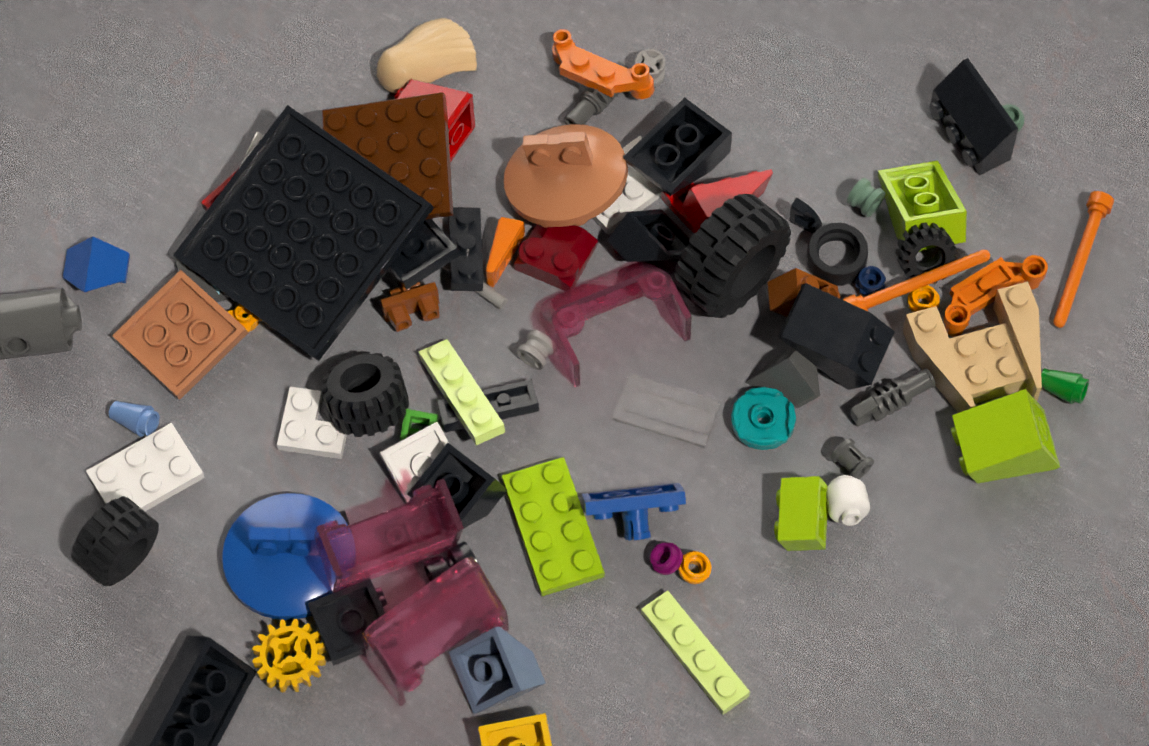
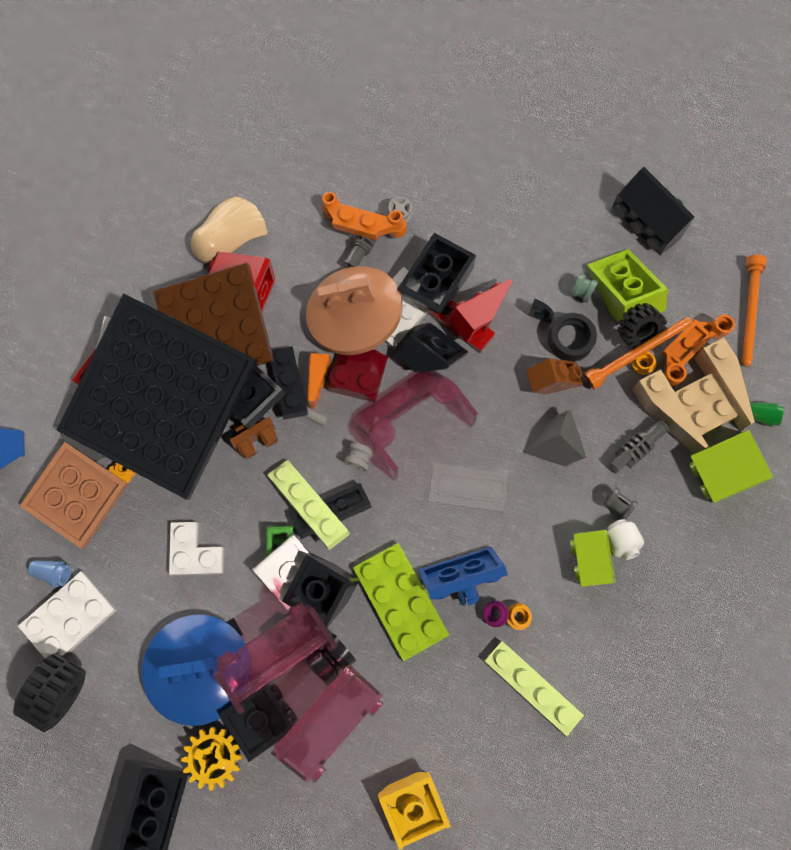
camera: 15 degrees left, 10 degrees up
(365, 394) = (222, 509): black tyre -> none
(495, 669) = (384, 743): sand blue slope -> none
(732, 255) = (500, 357): black tyre -> none
(767, 404) = (554, 473): teal plate -> none
(836, 336) = (591, 408): black slope -> none
(870, 274) = (603, 349): dark blue plate -> none

